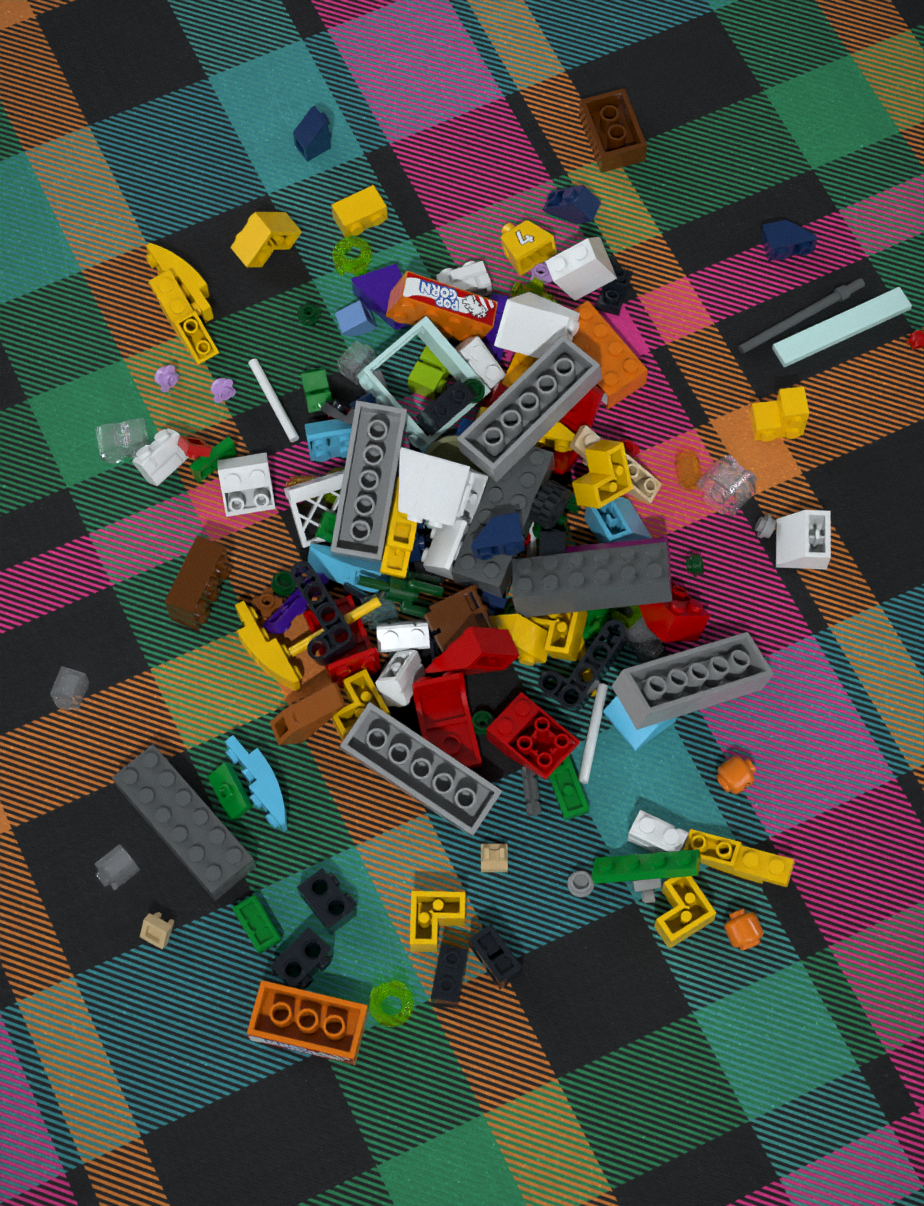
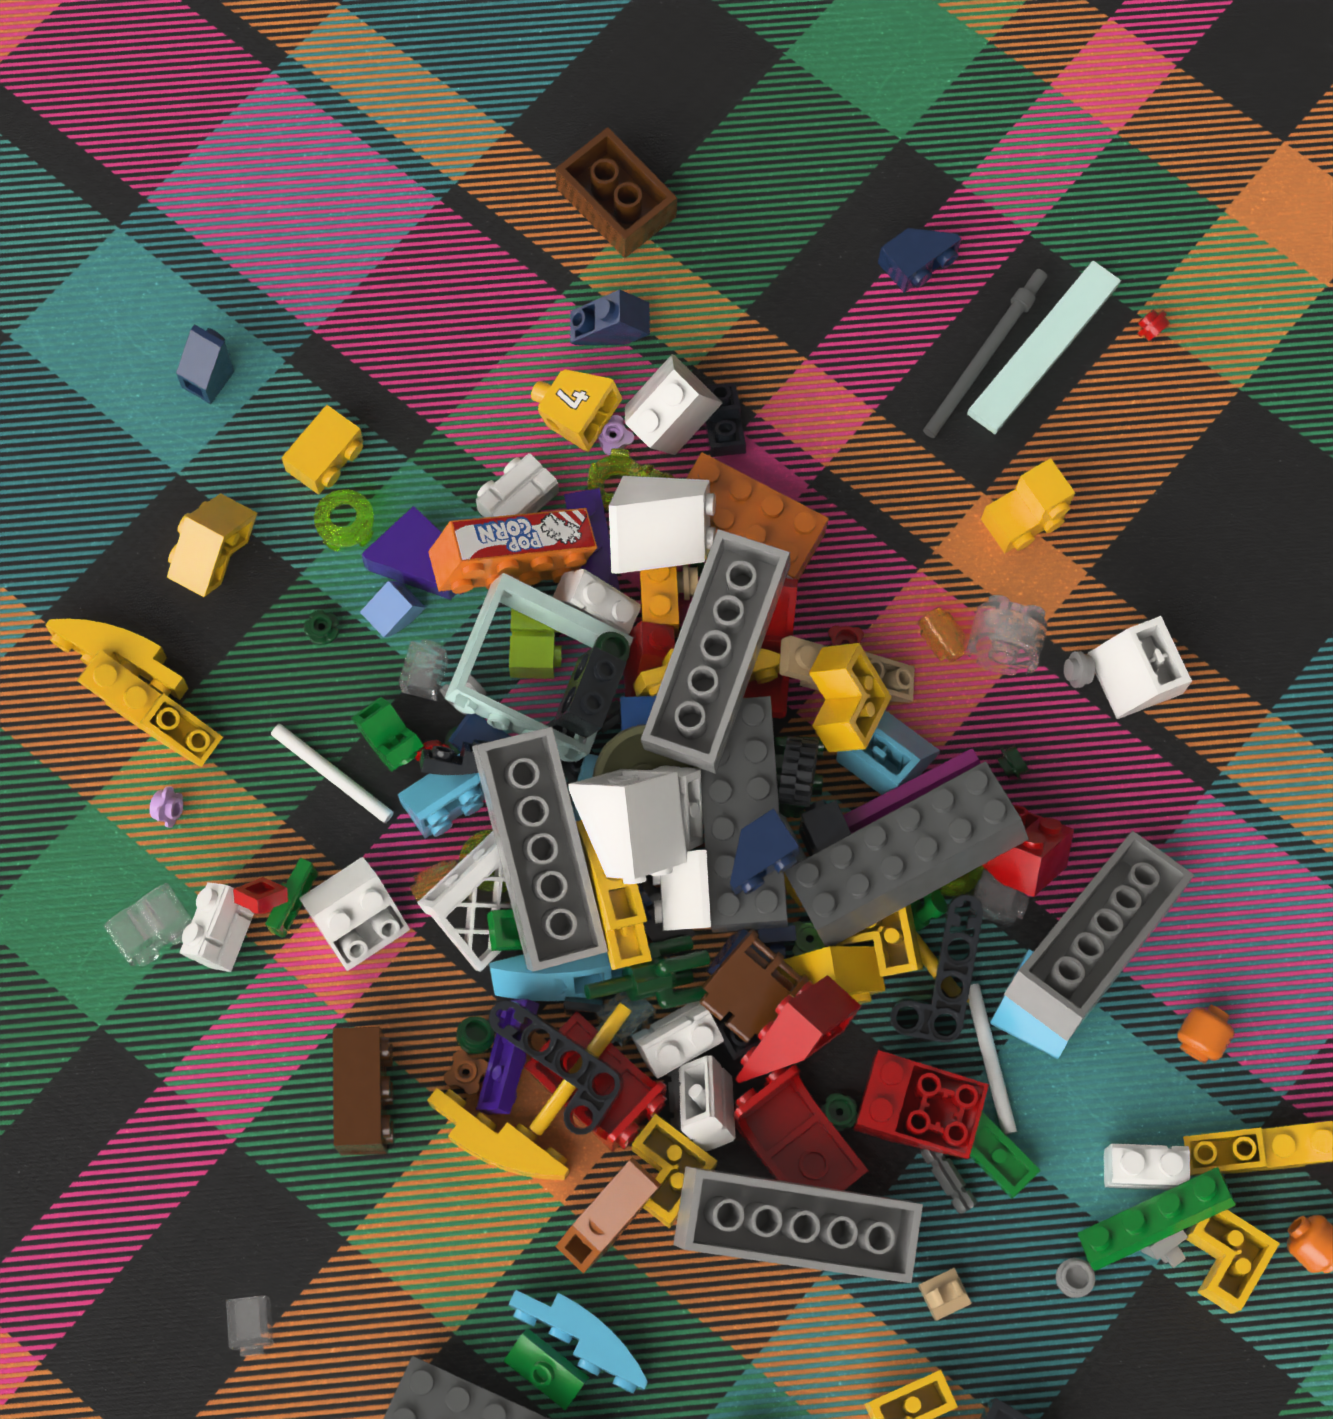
camera: 30 degrees left, 5 degrees up
(222, 389) = (254, 790): lavender plate -> none

